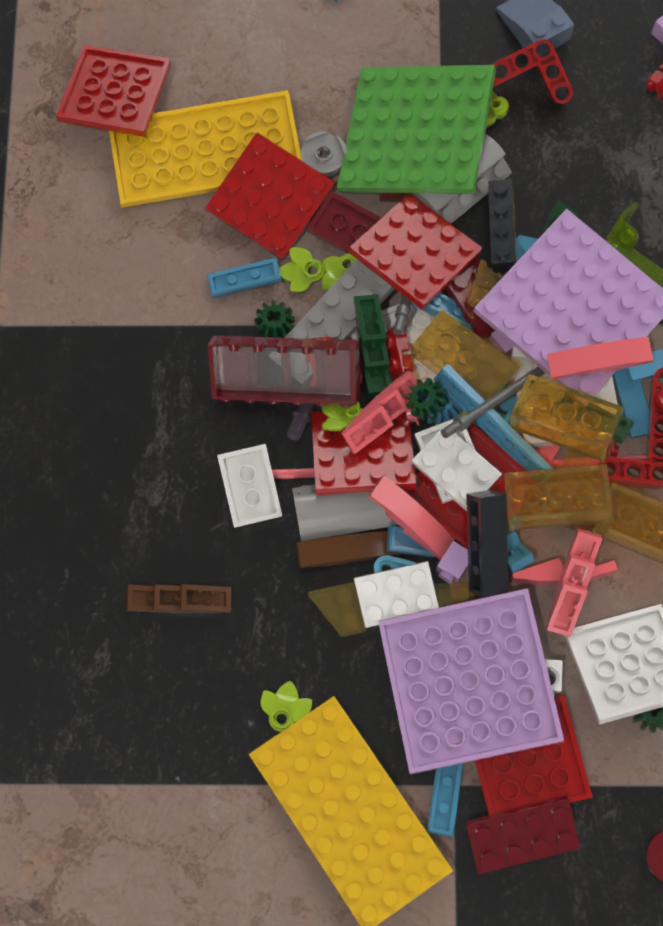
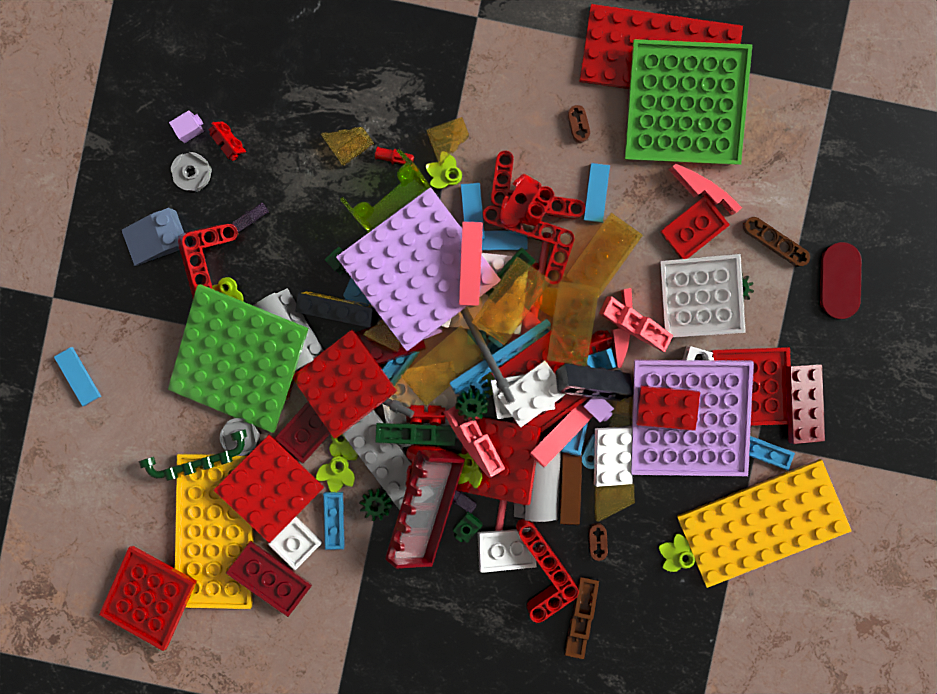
camera: 80 degrees left, 15 degrees up
(161, 215) = (268, 578): none -> dark red plate
(207, 240) = (295, 543): none -> white tile
(235, 540) = (551, 567): none -> red beam
(272, 439) = (470, 521): none -> dark green brick
(282, 606) = (602, 541): none -> copper beam
(287, 120) = (189, 467): none -> dark green bar
(477, 643) = (668, 407): none -> red plate
(540, 548) = (601, 340): none -> red hinge
(585, 117) = (250, 217): none -> clear purple axle
(619, 56) = (180, 174): none -> light grey plate

